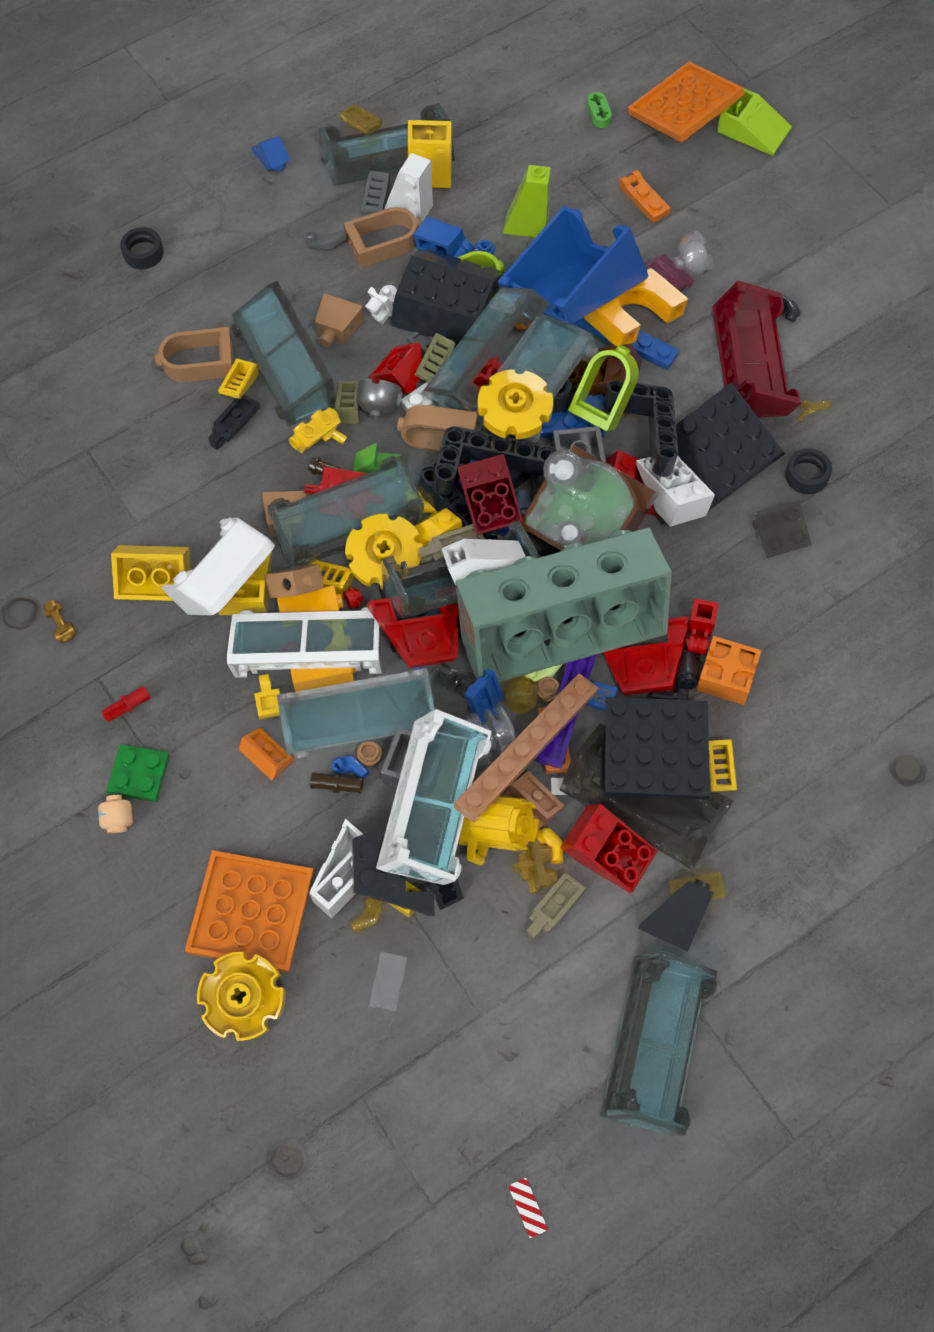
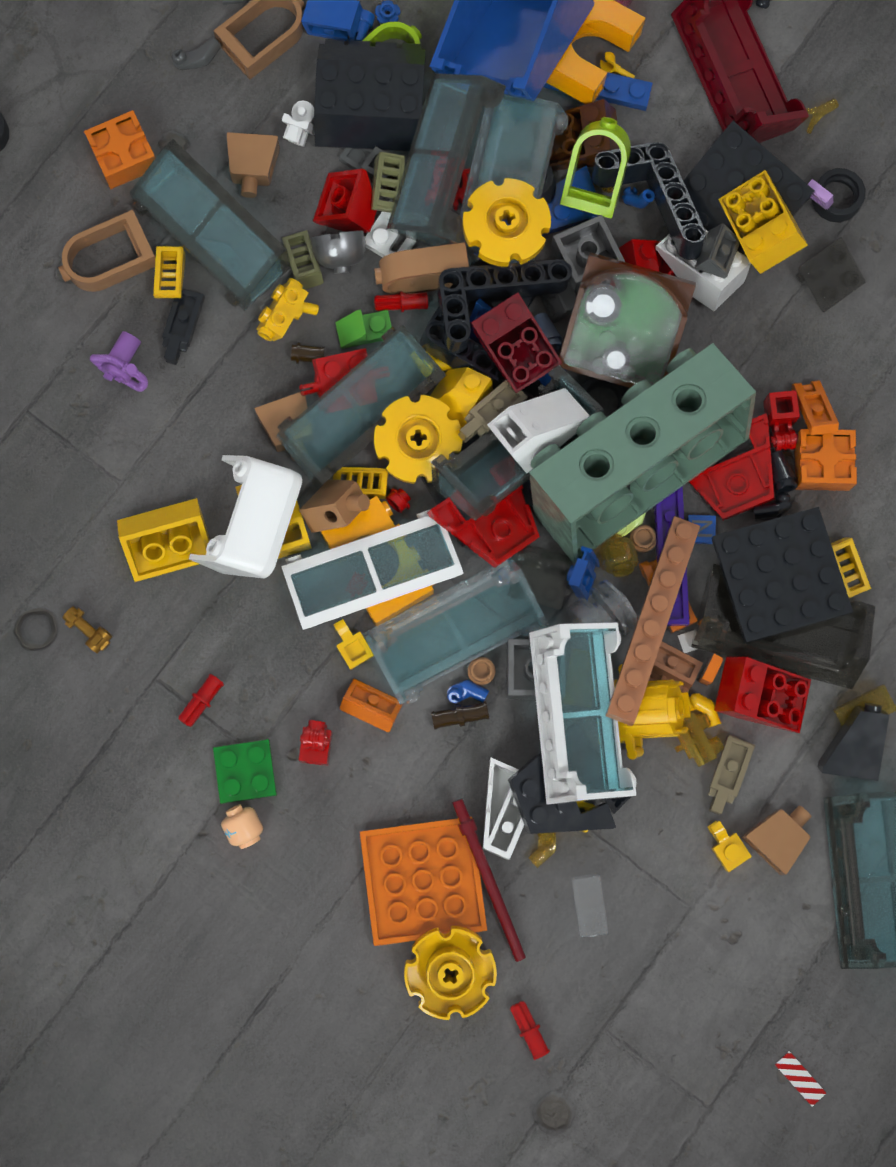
camera: 25 degrees left, 15 degrees up
(172, 431) = (117, 364): none -> medium lavender piece
(204, 765) = (315, 743): none -> red brick
(237, 283) = (120, 149): none -> orange piece
(292, 1073) = (529, 1030): none -> red axle
(304, 874) = (468, 828): none -> dark red bar
(414, 451) = (401, 301): none -> red axle
(532, 972) = (730, 849): none -> yellow plate
(568, 812) = (711, 669): none -> orange tile
(581, 976) = (780, 838): none -> medium nougat torso
(637, 428) = (638, 201): none -> blue arm
(651, 322) = (611, 66): none -> yellow hand
(687, 477) = (718, 251): none -> dark grey slope
(732, 466) = (762, 222): none -> yellow slope
(732, 624) = (816, 408): none -> orange plate
(790, 461) = (821, 195): none -> lavender tile

